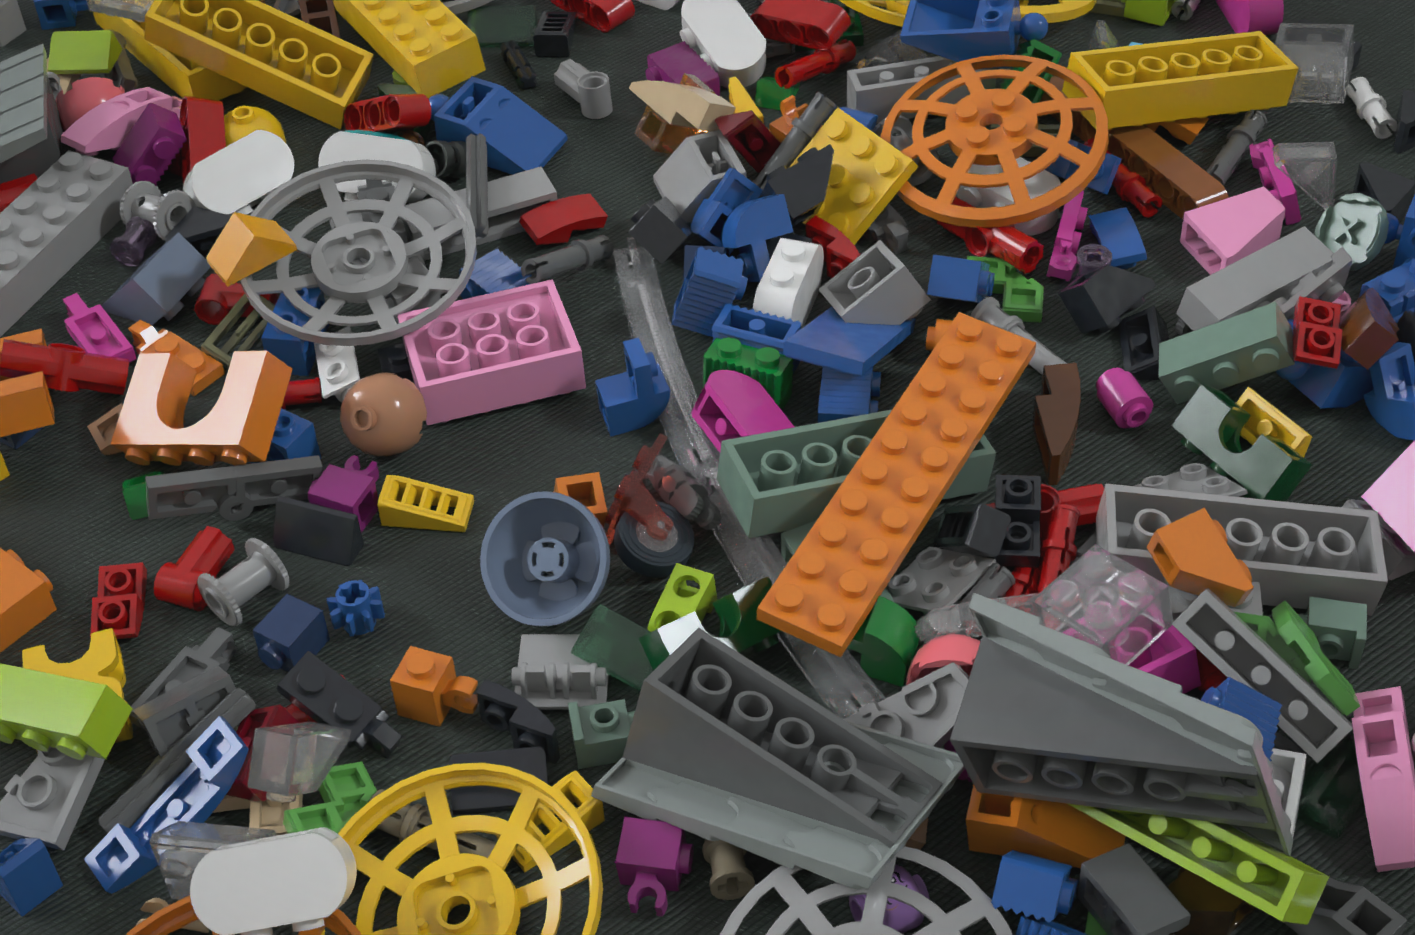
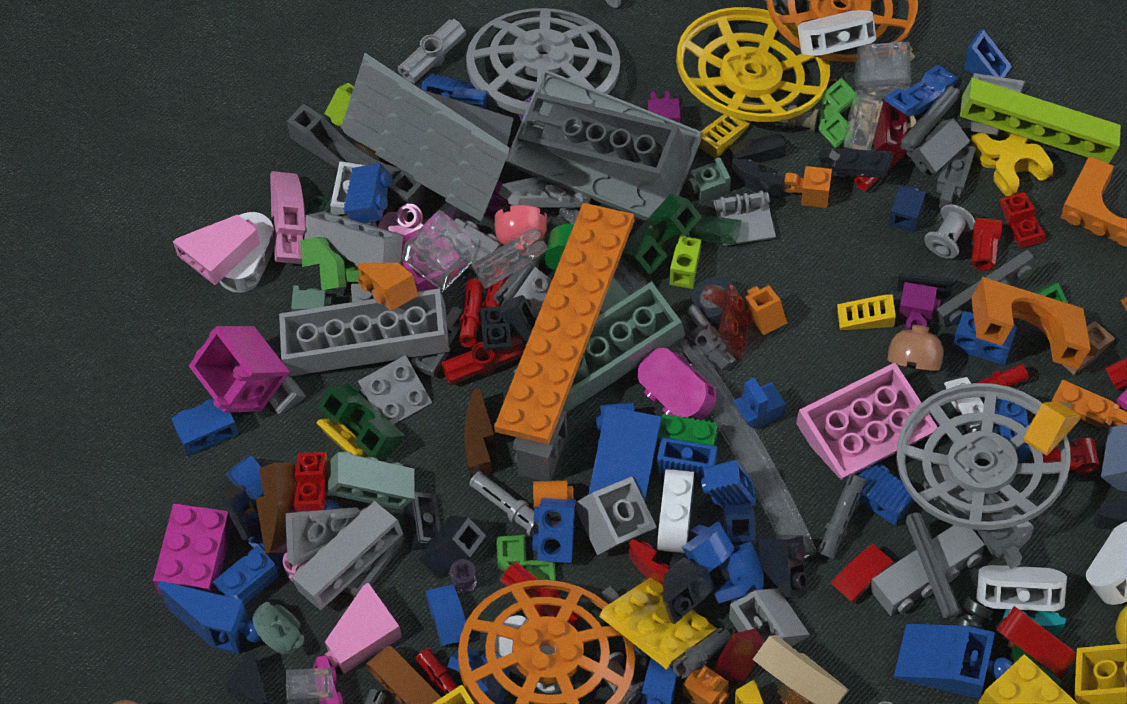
camera: 170 degrees right, 15 degrees up
(355, 607) = (877, 231): blue gear -> none
(528, 545) = (769, 259): sand blue piece -> none
(1063, 257) = (486, 583): dark pink hinge -> none
(1123, 398) = (436, 460): dark pink brick -> none

